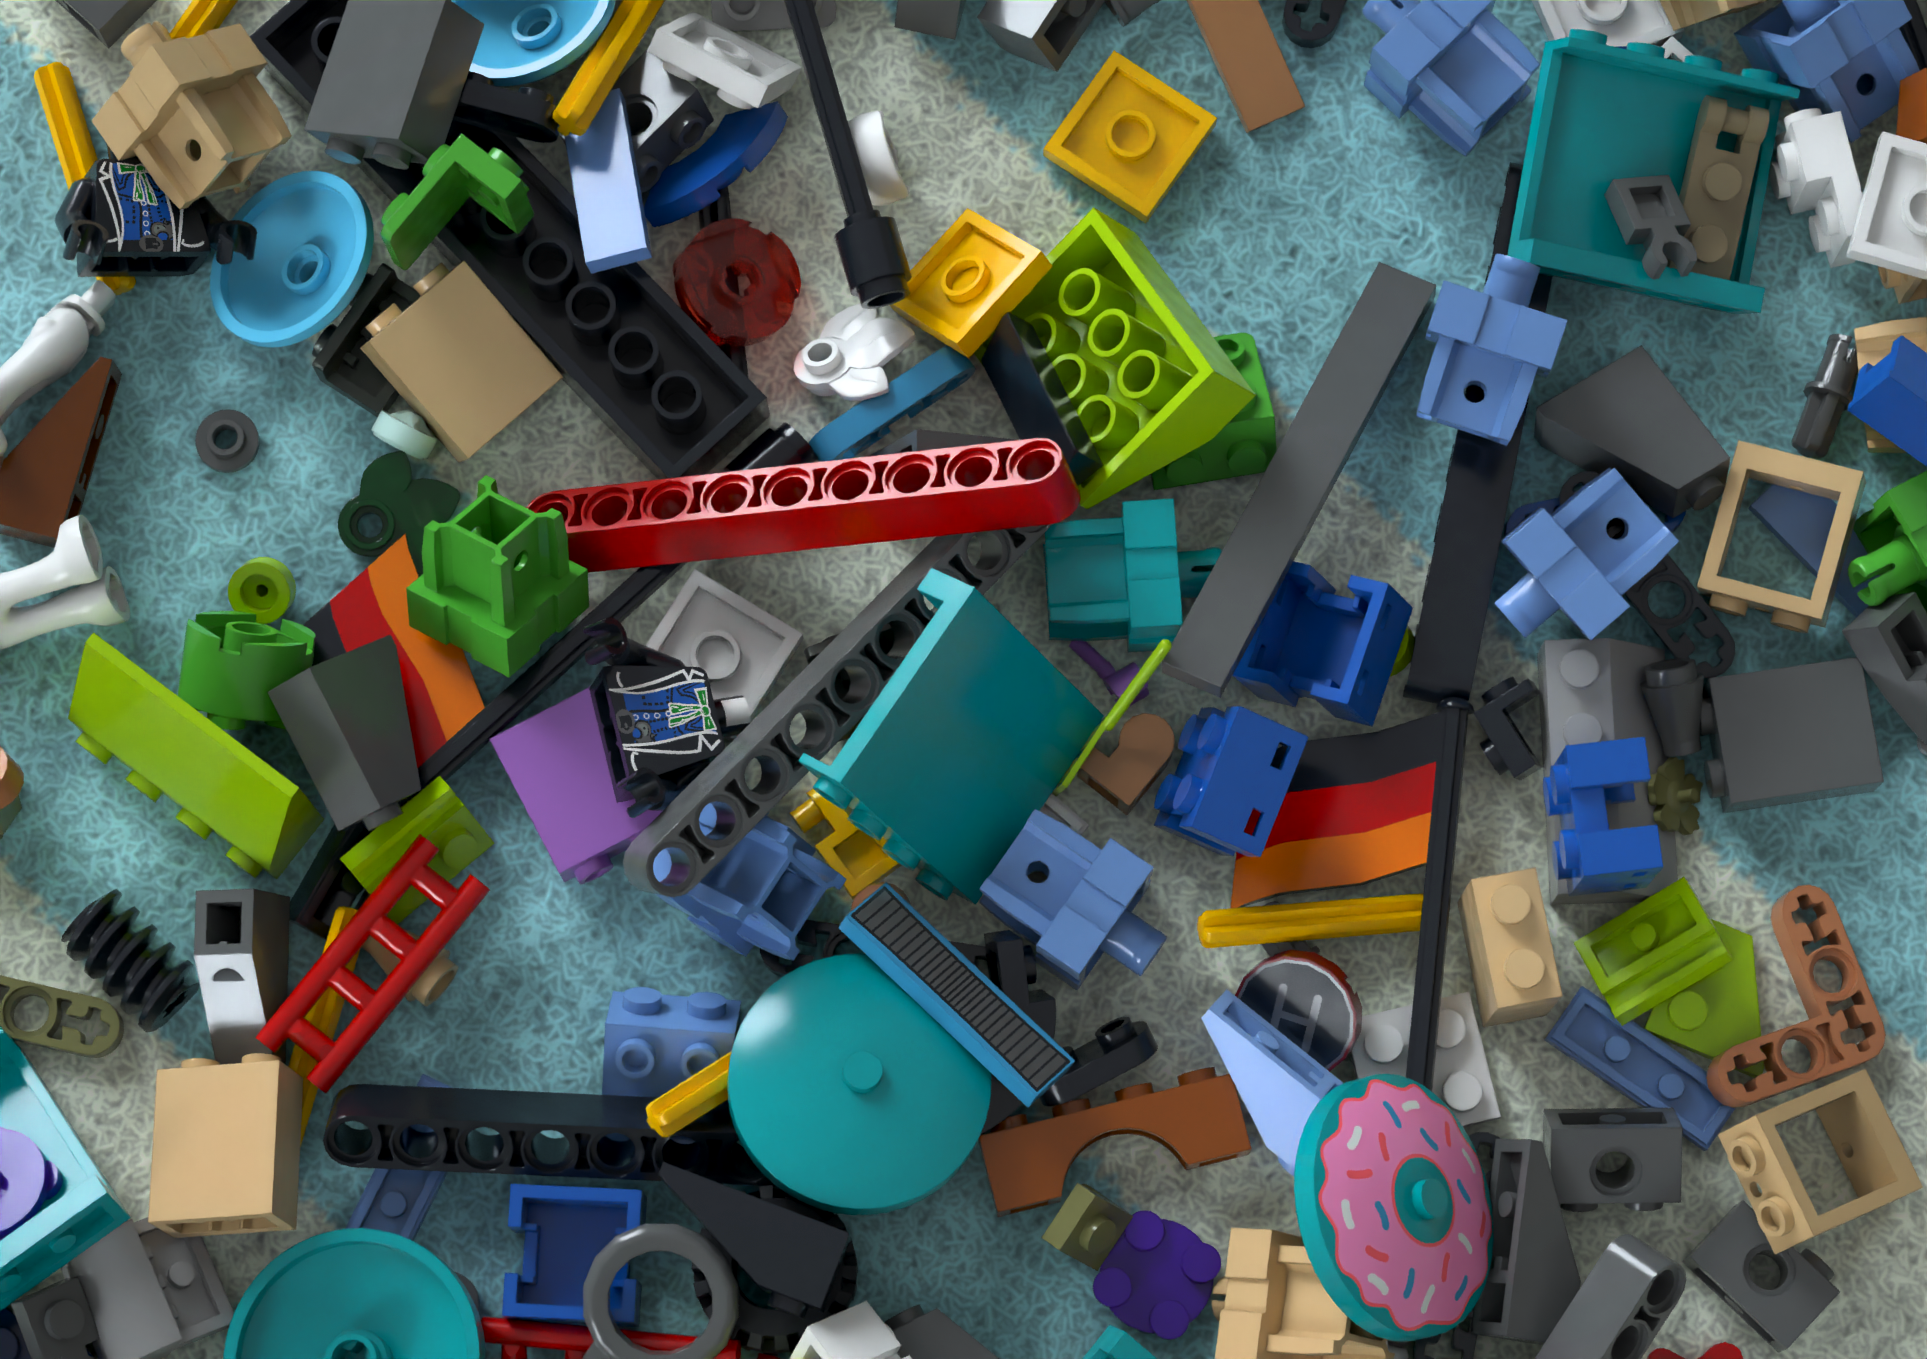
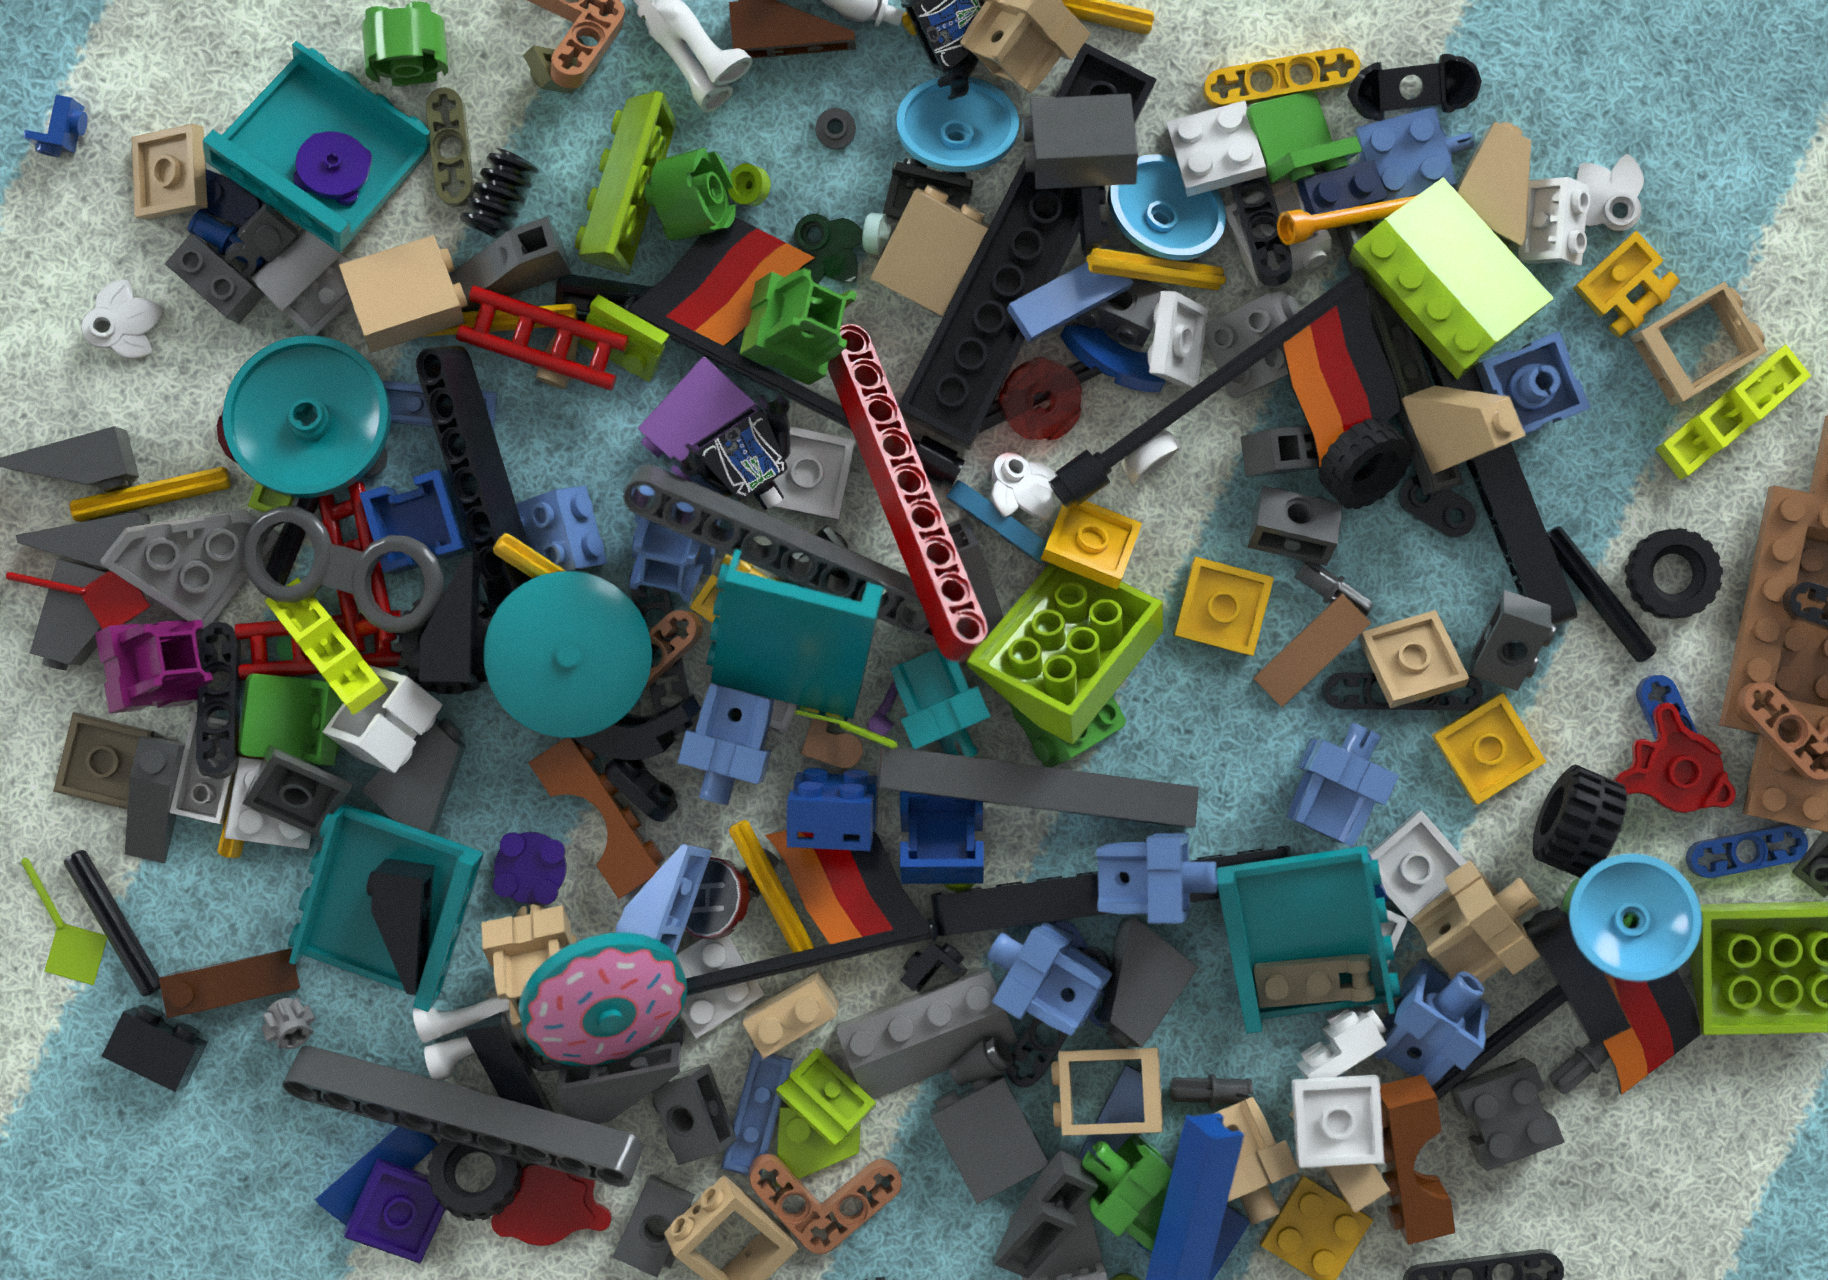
camera: 75 degrees right, 10 degrees up
(353, 733) = (671, 273): dark grey slope -> none
(449, 180) = (1026, 199): bright green bracket -> none
(956, 994) = (640, 693): tile -> none
(1036, 395) = (1026, 612): black slope -> none
(1087, 1226) = (541, 816): olive bracket -> none
(1578, 791) = (891, 1026): blue piece -> none
(1653, 216) = (1279, 950): dark grey plate -> none
(1674, 796) = (926, 1079): olive plant -> none

